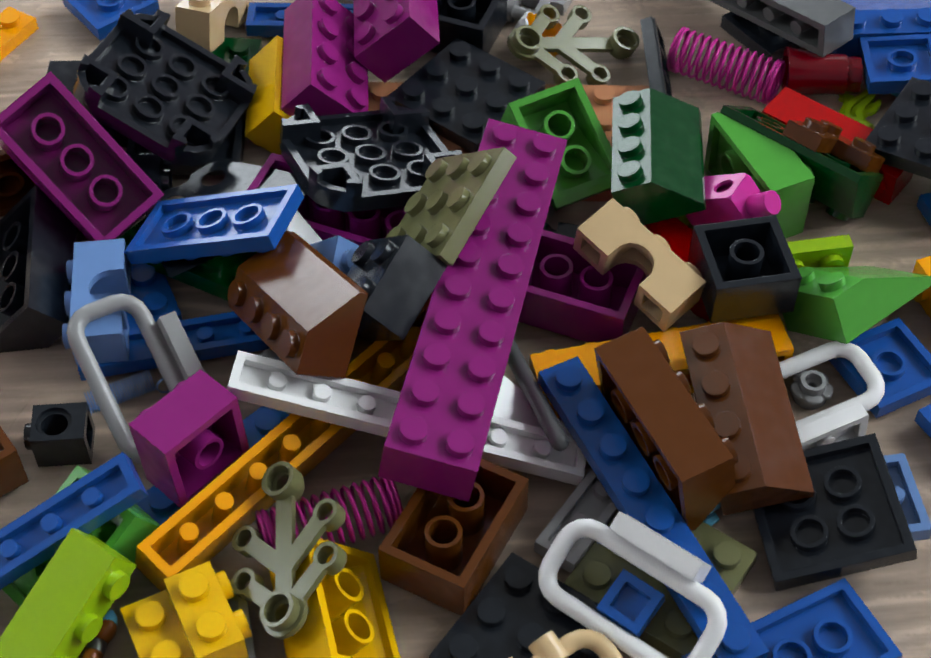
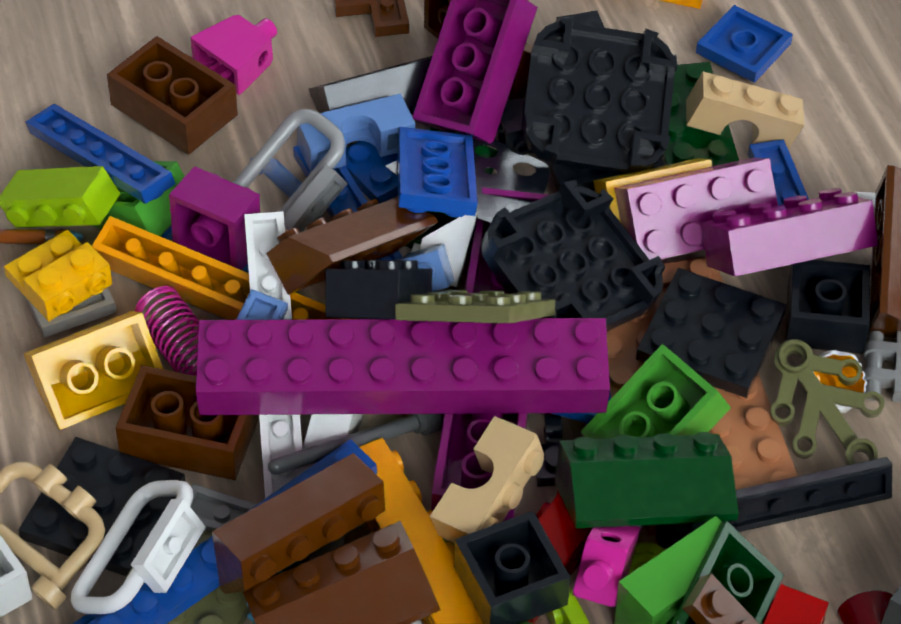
camera: 75 degrees right, 0 degrees up
(60, 434) = (228, 152): black brick -> none
(286, 608) = (76, 317): olive plant -> none
(365, 407) = (262, 307): none -> medium blue tile
(631, 603) = (125, 550): blue plate -> none
(771, 81) = (861, 519): dark pink piece -> none

